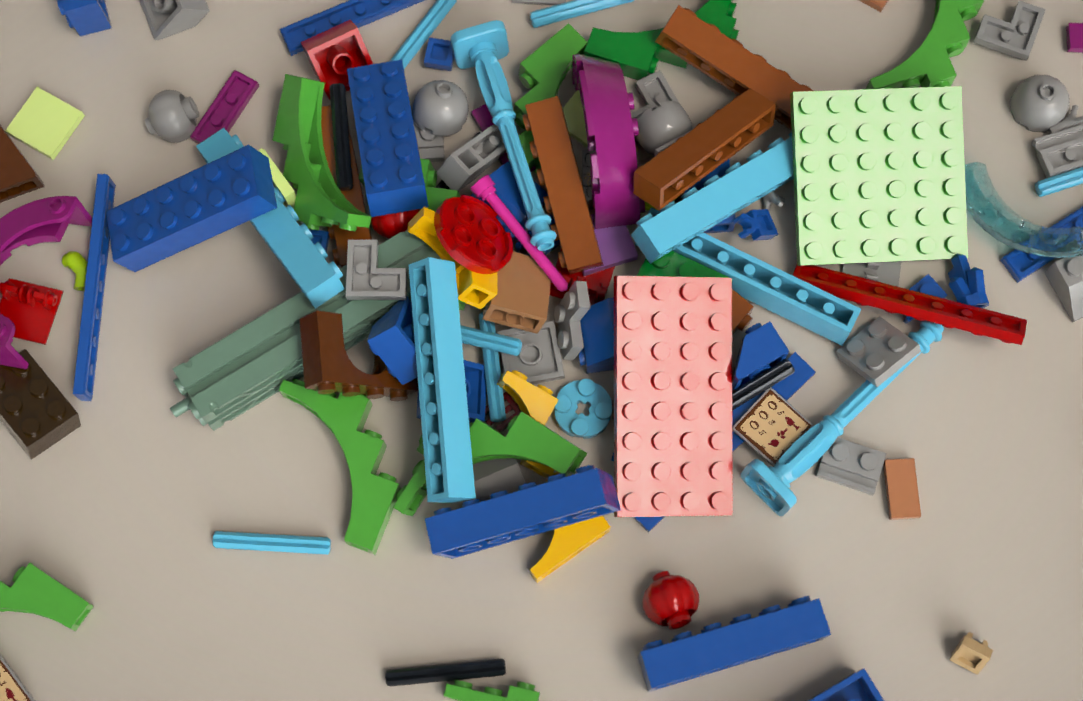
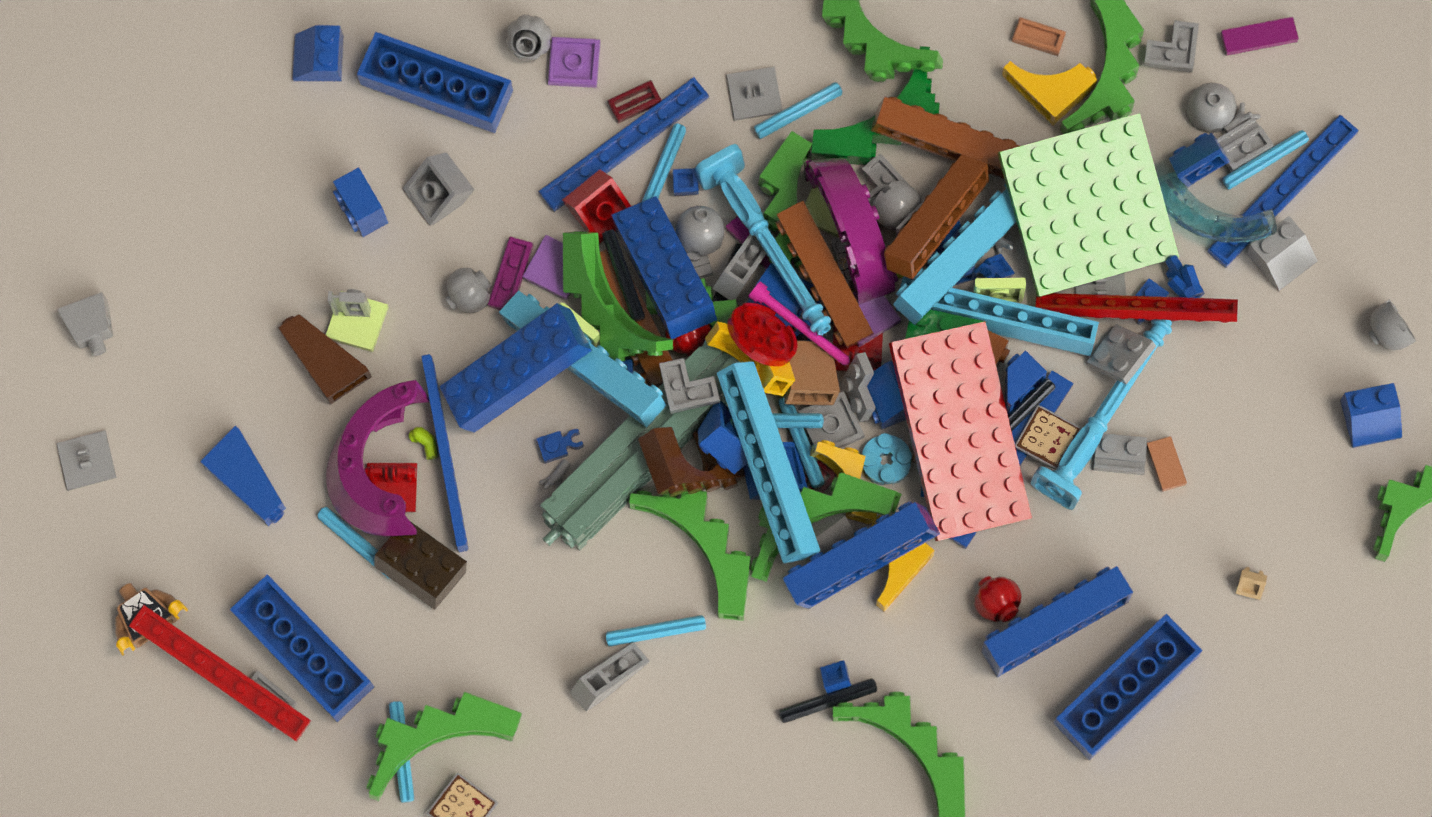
camera: 10 degrees left, 0 degrees up
(35, 97) = (350, 302): none -> light grey plate
(202, 583) = (608, 676): none -> light grey slope
(216, 336) = (556, 476): none -> light grey bar
(220, 307) = (555, 446): none -> blue plate
(262, 112) = (547, 267): none -> medium lavender tile
(460, 646) = (835, 676): none -> blue plate
(759, 245) = (1003, 288): none -> yellowish green tile
(863, 48) = (1052, 94): none -> yellow arch
(1015, 154) = (1198, 159): none -> blue slope

